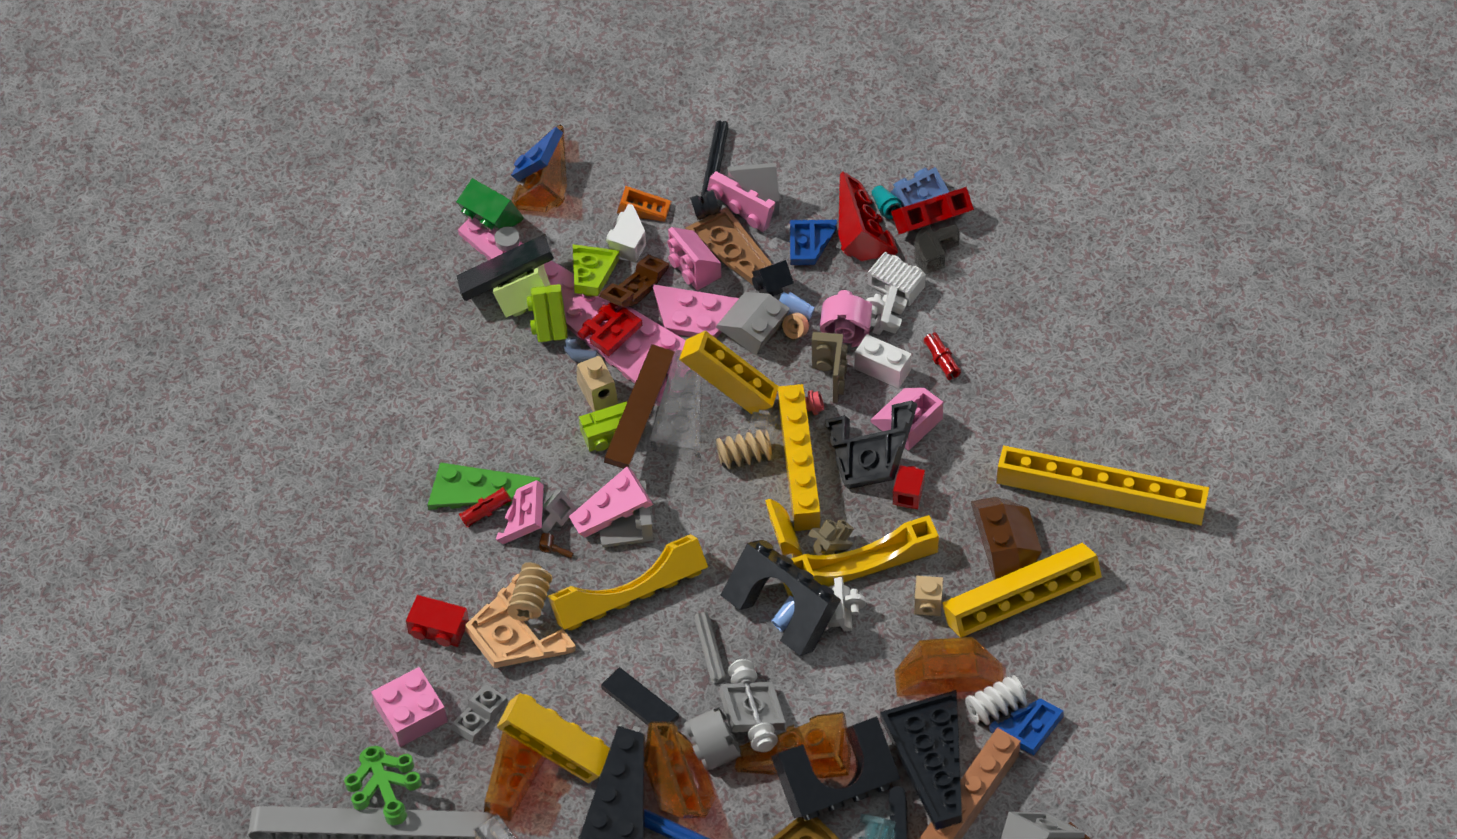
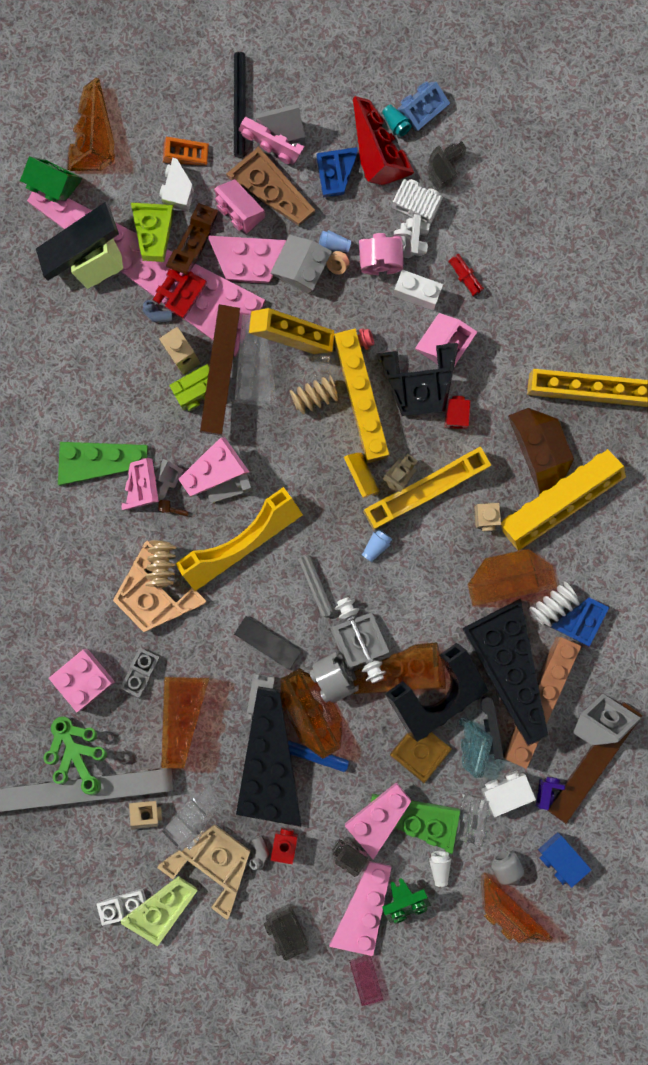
camera: 15 degrees left, 30 degrees up
(437, 621) = (88, 596): red brick -> none
(485, 507) = (96, 490): red pin -> none
(507, 238) = (72, 208): light grey tile -> none
(537, 156) = (82, 116): blue wing -> none
(548, 313) = (124, 284): lime brick -> none
(554, 737) = (205, 704): yellow brick -> none
(705, 205) = (244, 147): black wheel -> none
(772, 278) = (311, 220): black brick -> none
(812, 601) = (396, 544): black arch -> none
(831, 354) = (375, 289): dark tan bracket -> none
(848, 606) = (415, 523): white hips -> none
(932, 210) = (451, 120): red arch -> none

